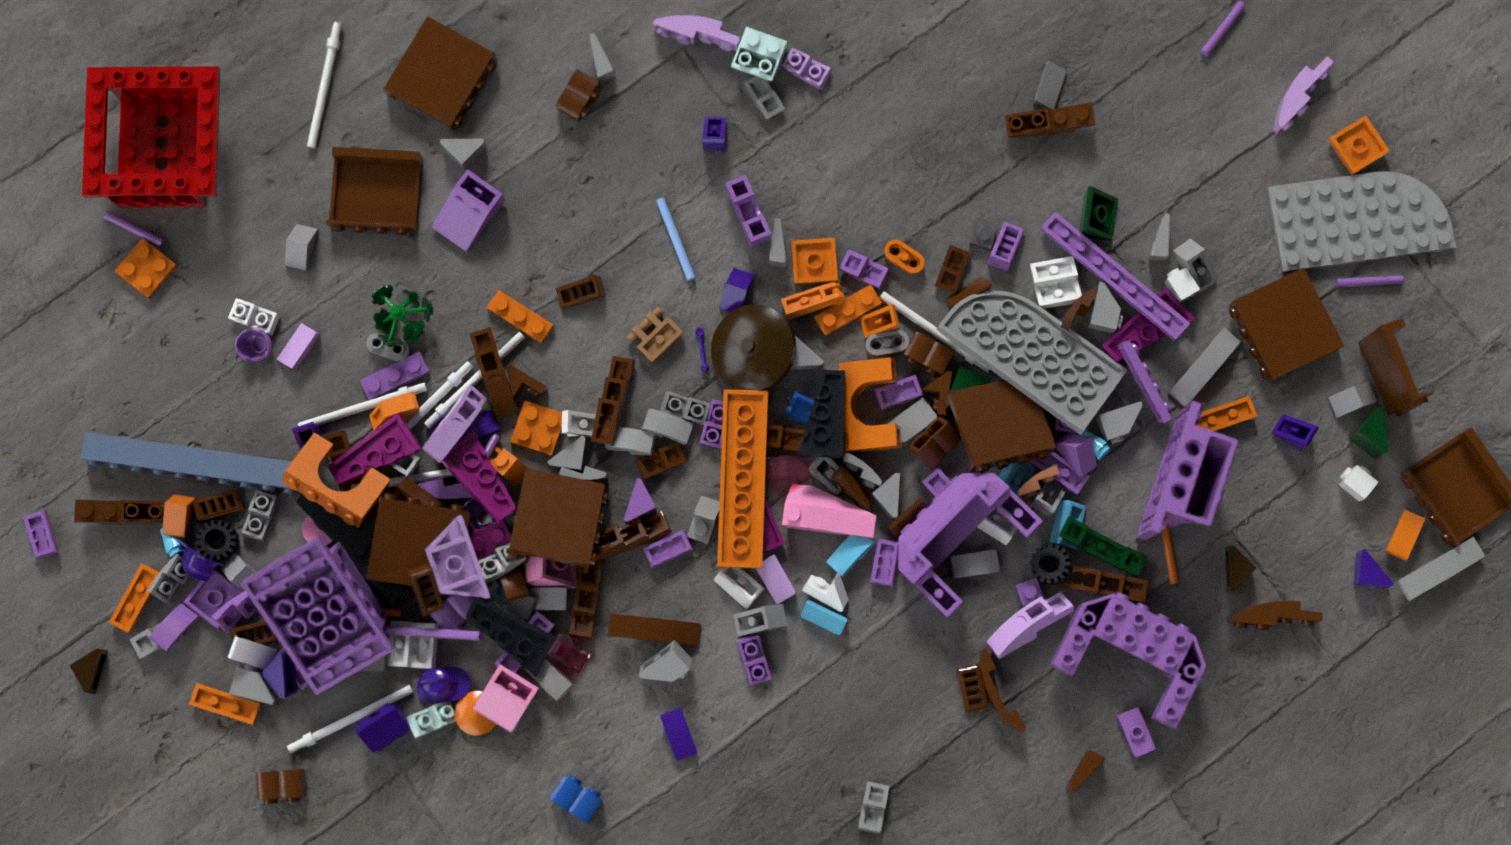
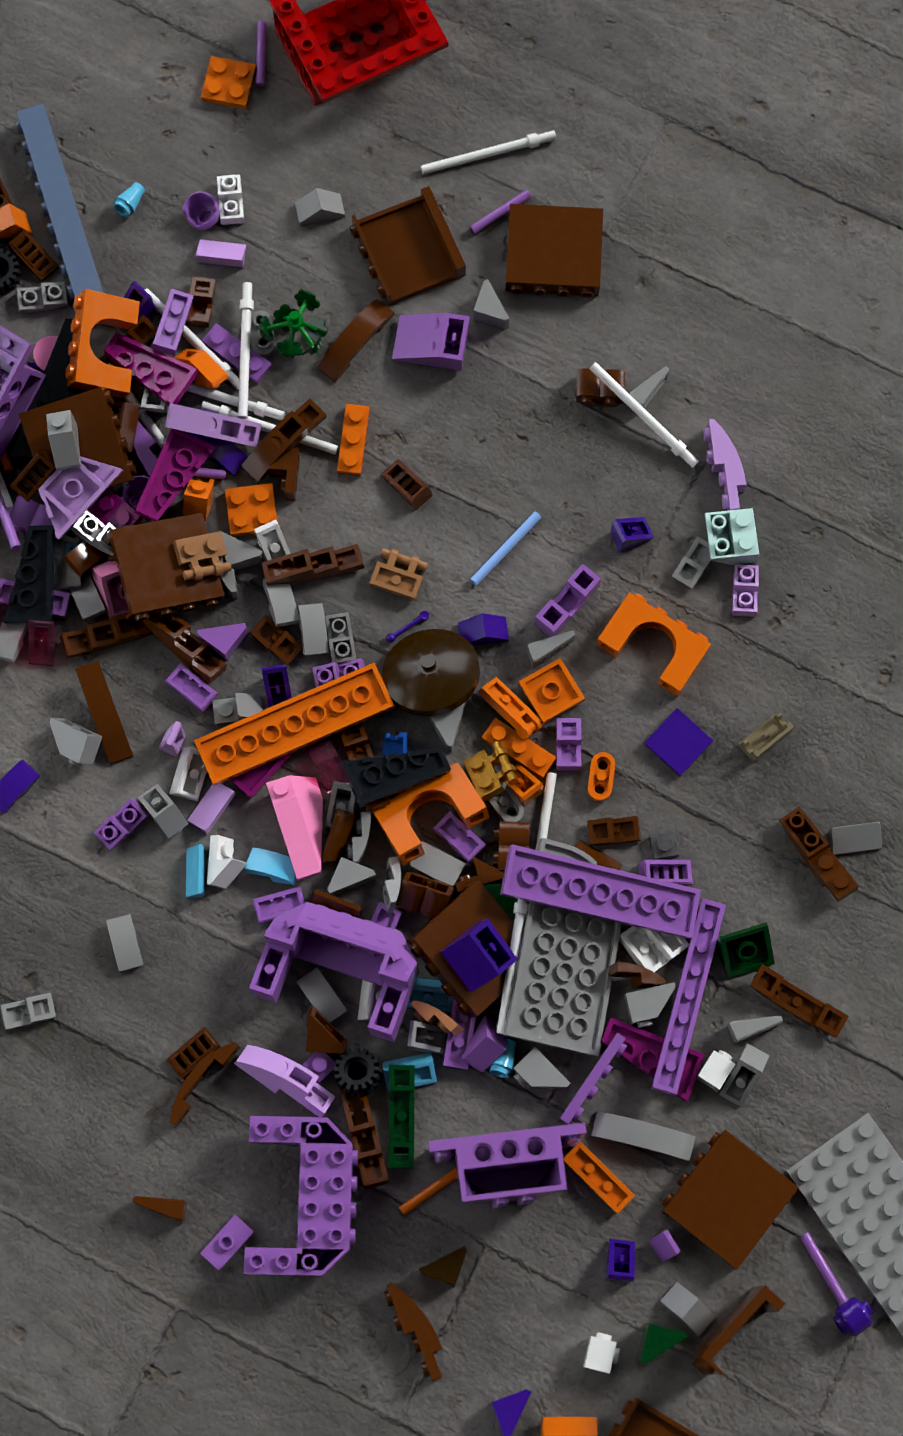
camera: 60 degrees right, 5 degrees down
(211, 403) = (127, 202): none -> medium azure cone
(333, 384) = (202, 303): none -> reddish brown slope
(343, 415) = (172, 322): none -> medium lavender plate
(361, 348) = (246, 308): none -> white bar
(382, 101) = (499, 212): none -> medium lavender bar
(413, 550) = (63, 440): none -> light grey slope
(433, 273) = (354, 338): none -> reddish brown slope
(557, 485) = (202, 548): none -> medium nougat plate
(660, 60) = (677, 447): none -> white bar
(703, 478) = (276, 684): none -> dark purple slope
(703, 584) = (173, 739): none -> lavender slope
(832, 136) = (636, 615): none -> orange arch
(854, 701) = (124, 942): none -> light grey slope
(858, 347) = (483, 773): none -> pearl gold plate
(905, 183) = (678, 742): none -> dark purple tile
(917, 464) = (392, 885): none -> light grey slope
(935, 113) = (766, 737): none -> dark tan hinge
(987, 371) = (520, 911): none -> white bar
(1002, 302) = (600, 892): none -> medium lavender plate
(1009, 577) = (323, 1035): none -> reddish brown slope
(1012, 420) = (479, 955): none -> dark purple slope
(1158, 195) = (798, 1002): none -> reddish brown slope
(1297, 392) = (664, 1246): none -> medium lavender slope
(1418, 277) = (853, 1317): none -> dark purple head

